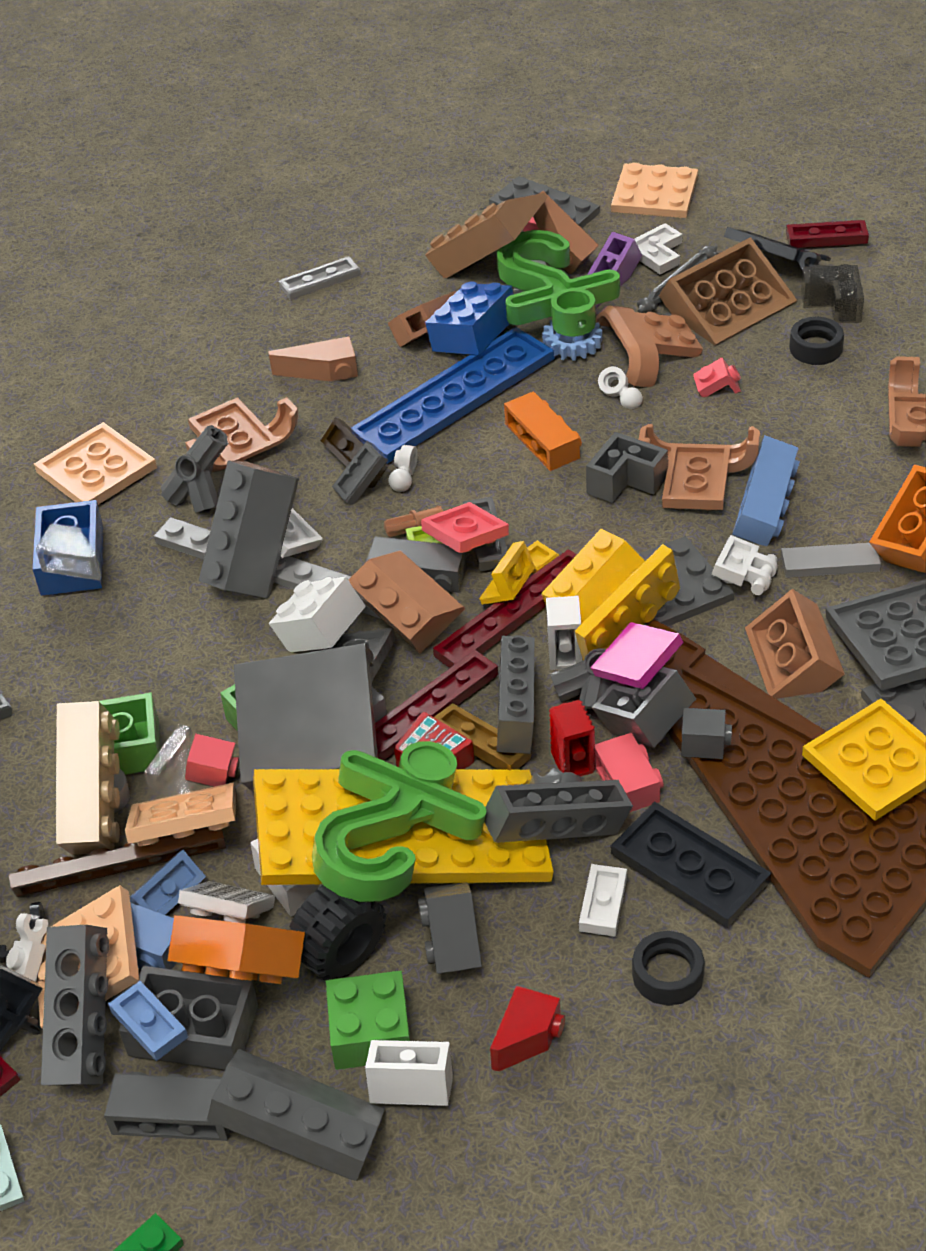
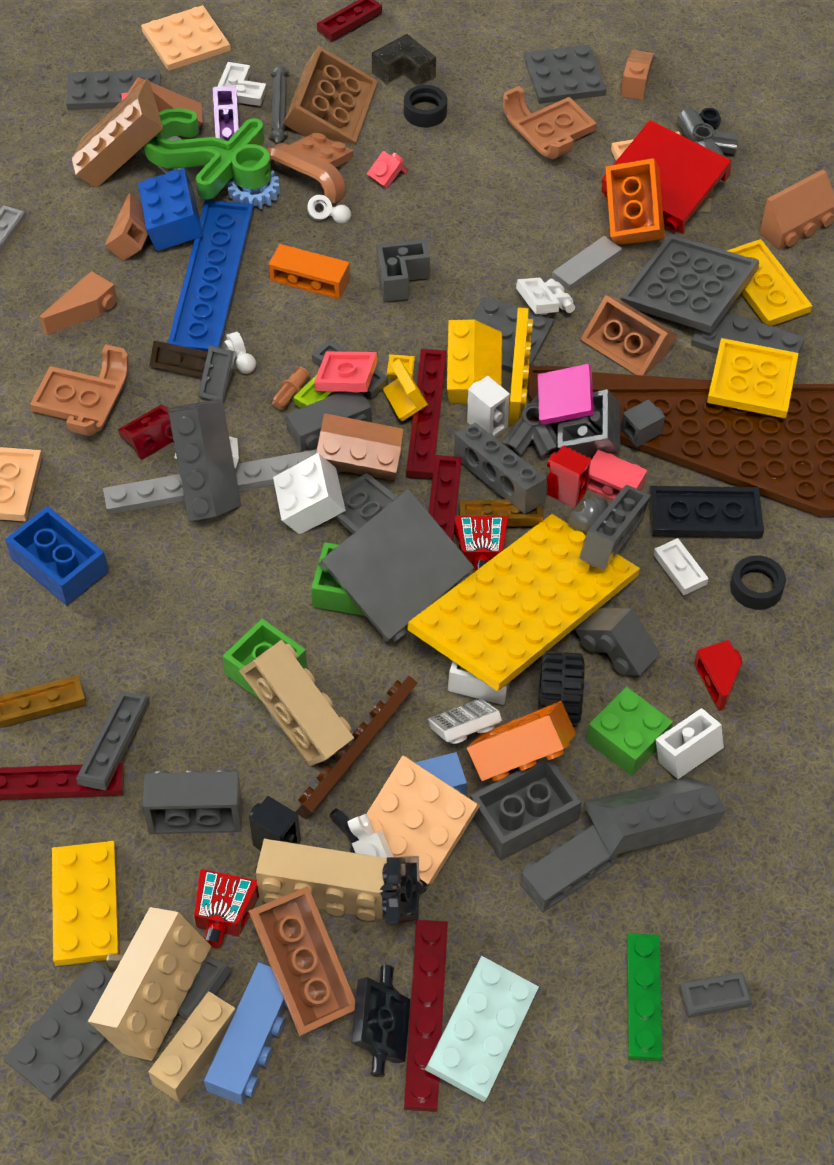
camera: 45 degrees left, 10 degrees up
(61, 1020) = (481, 892): dark grey brick -> none
(67, 552) = (88, 555): clear slope -> none
(148, 1020) = (521, 822): medium blue plate -> none
(163, 888) = (408, 736): medium blue plate -> none
(168, 769) = (323, 658): clear panel -> none
(181, 814) = (377, 683): light nougat plate -> none
(194, 471) = (103, 449): dark grey piece -> none
(211, 761) = (344, 640): coral brick -> none
(400, 798) = (524, 569): bright green piece -> none
(700, 471) = (449, 246): nougat piece -> none
(766, 492) = (506, 235): medium blue brick -> none
(802, 256) = (333, 45): black tile -> none

